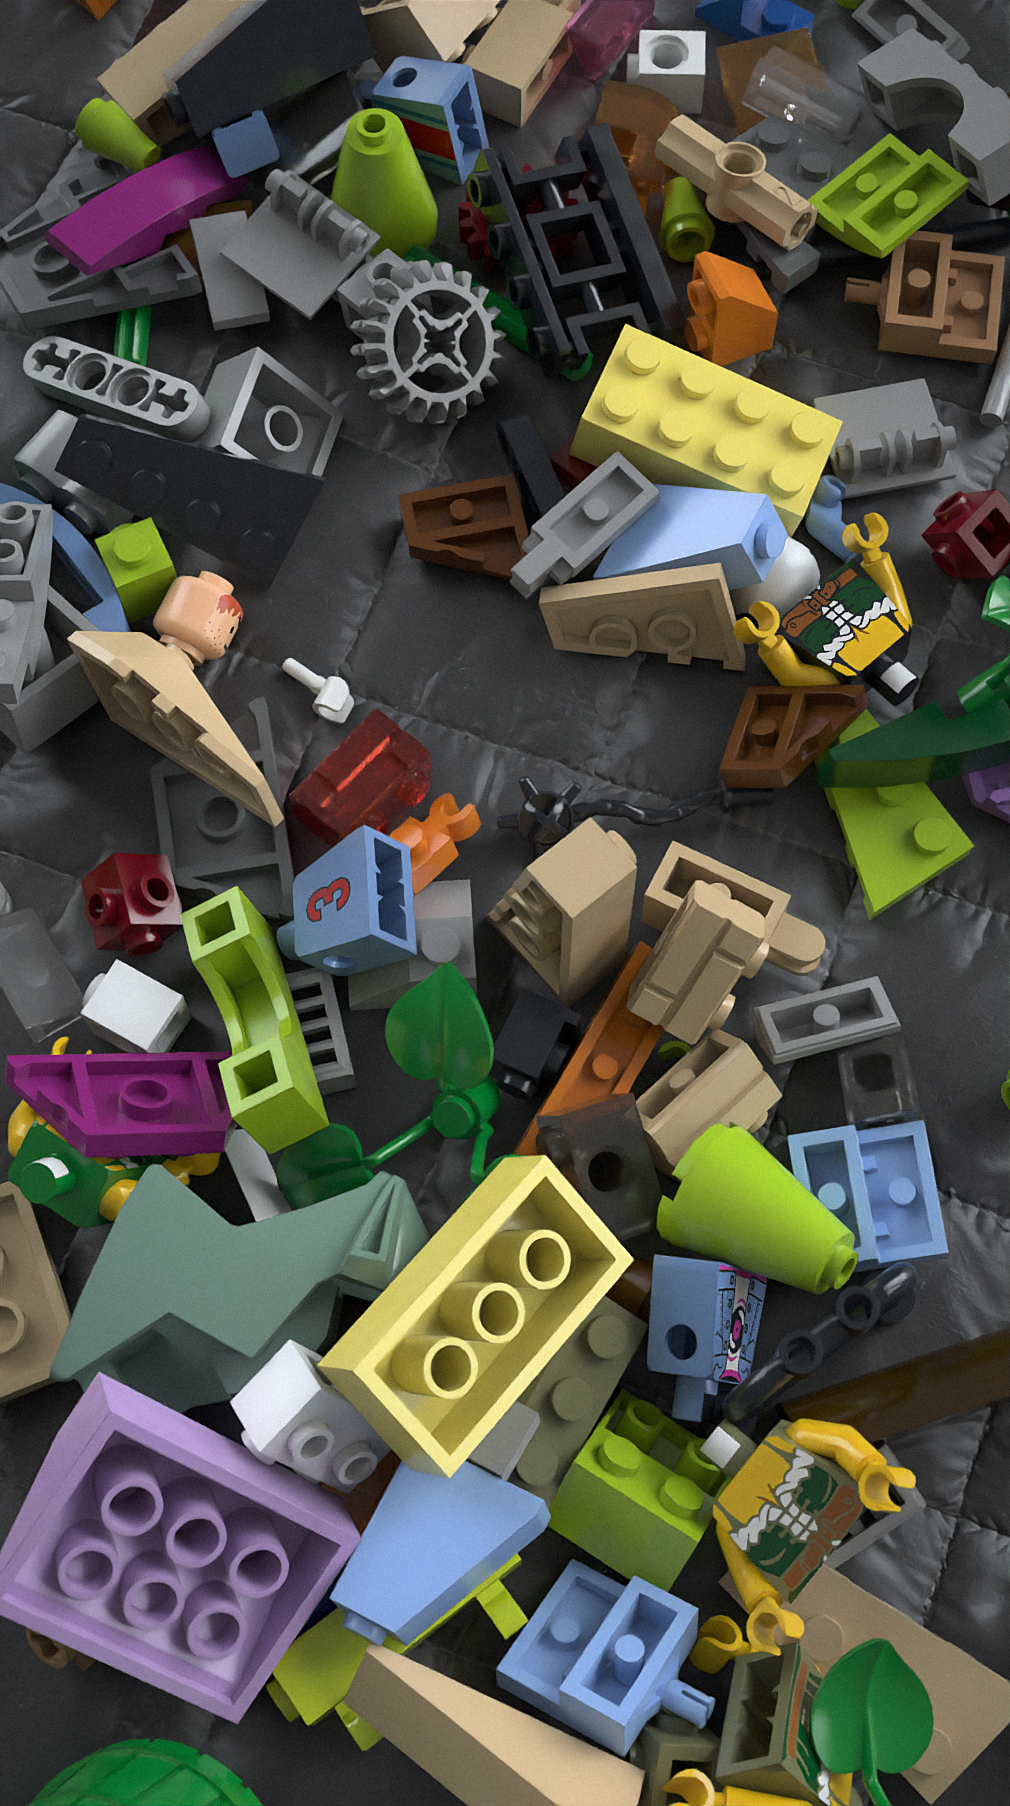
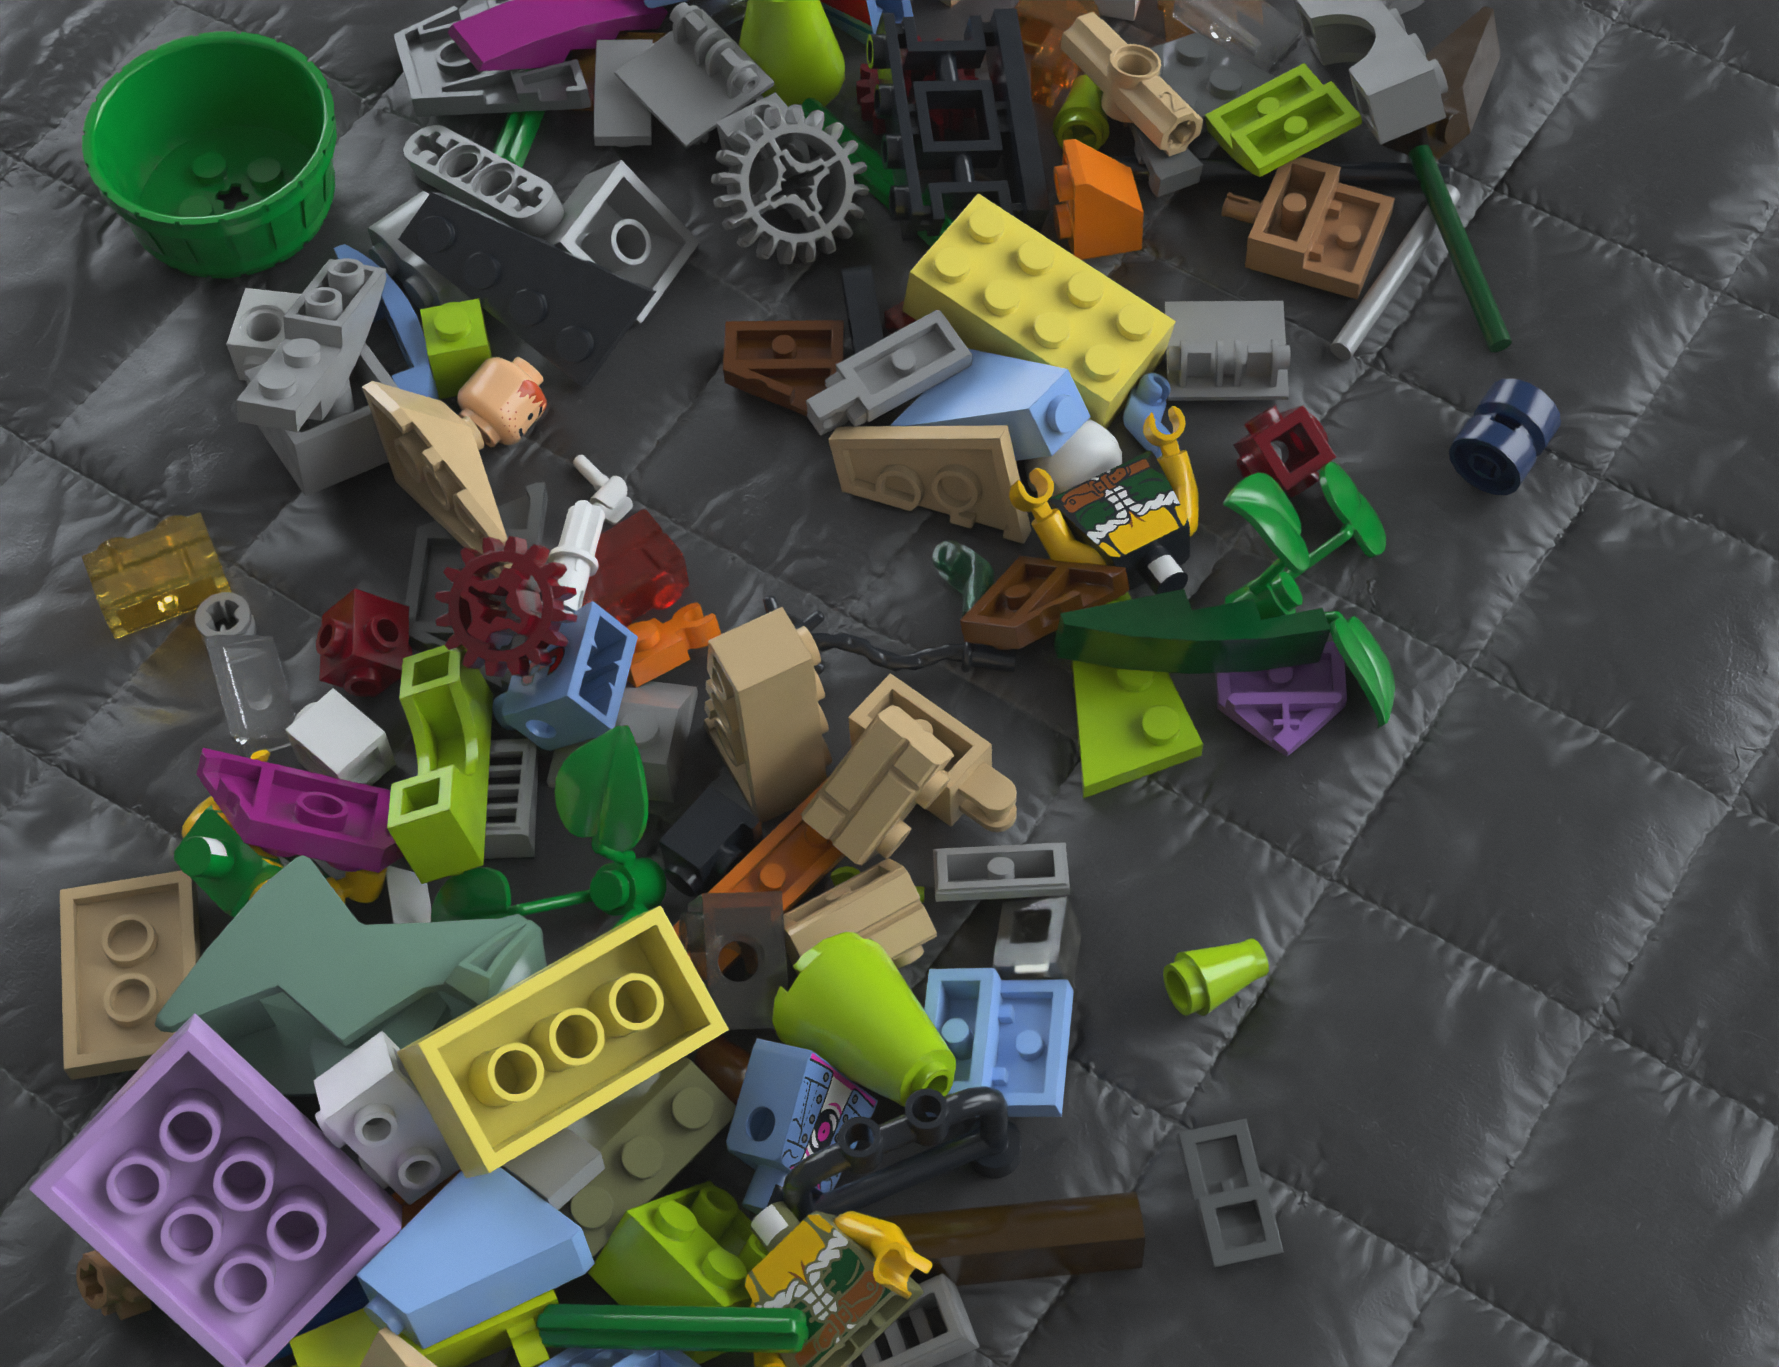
camera: 15 degrees right, 10 degrees down
(270, 875) = (522, 586): none -> dark red gear
(326, 782) = (578, 549): none -> white axle
(653, 1573) = (673, 1328): none -> green axle
(703, 714) = (963, 570): none -> clear green arm

